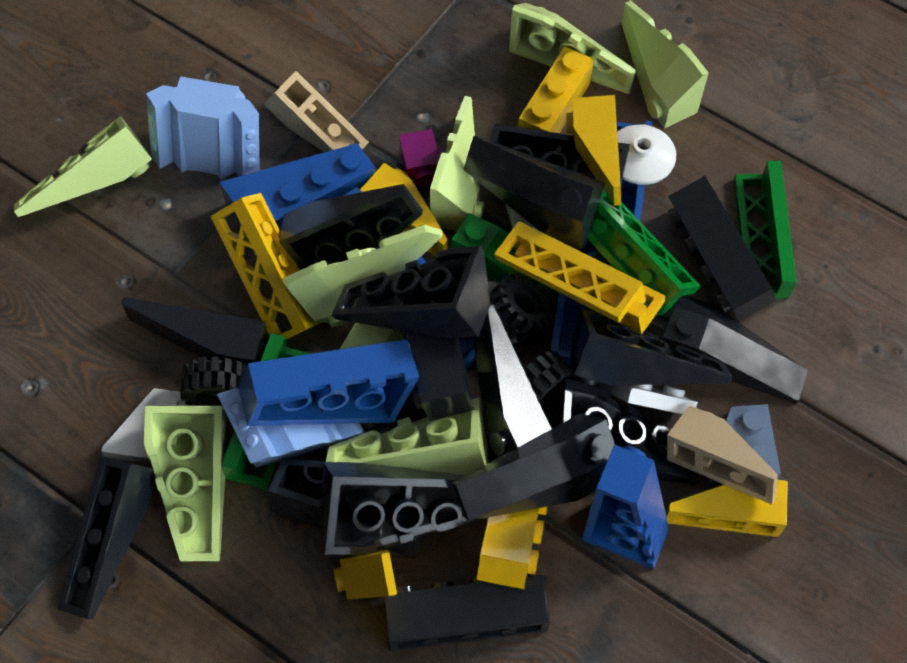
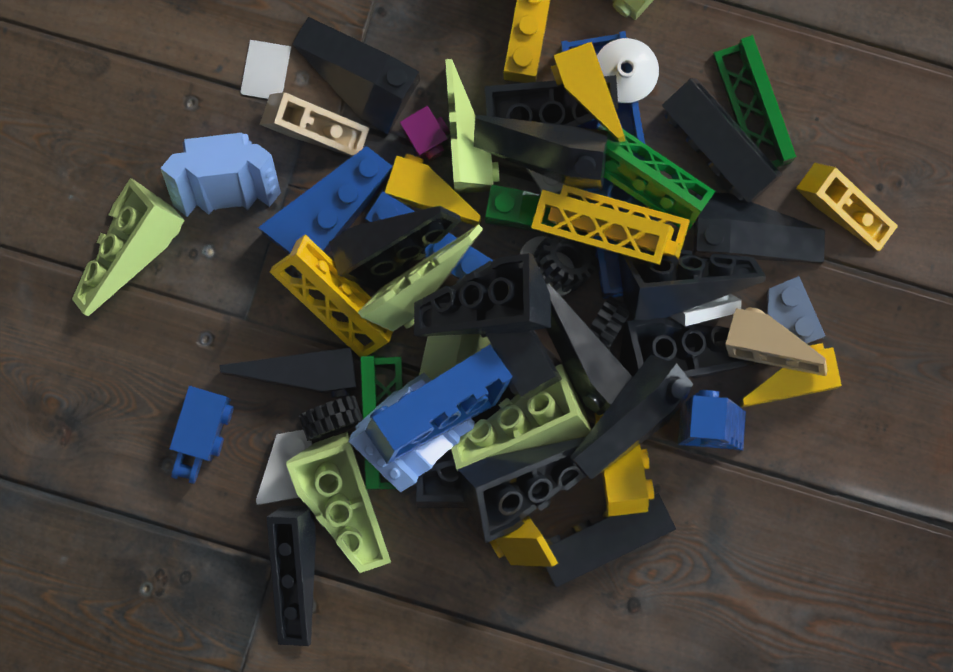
camera: 15 degrees left, 20 degrees up
(75, 358) = (199, 430): none -> blue brick
(289, 60) = (265, 69): none -> white sticker
(380, 94) = (363, 76): none -> black wedge
(838, 349) = (846, 205): none -> yellow slope

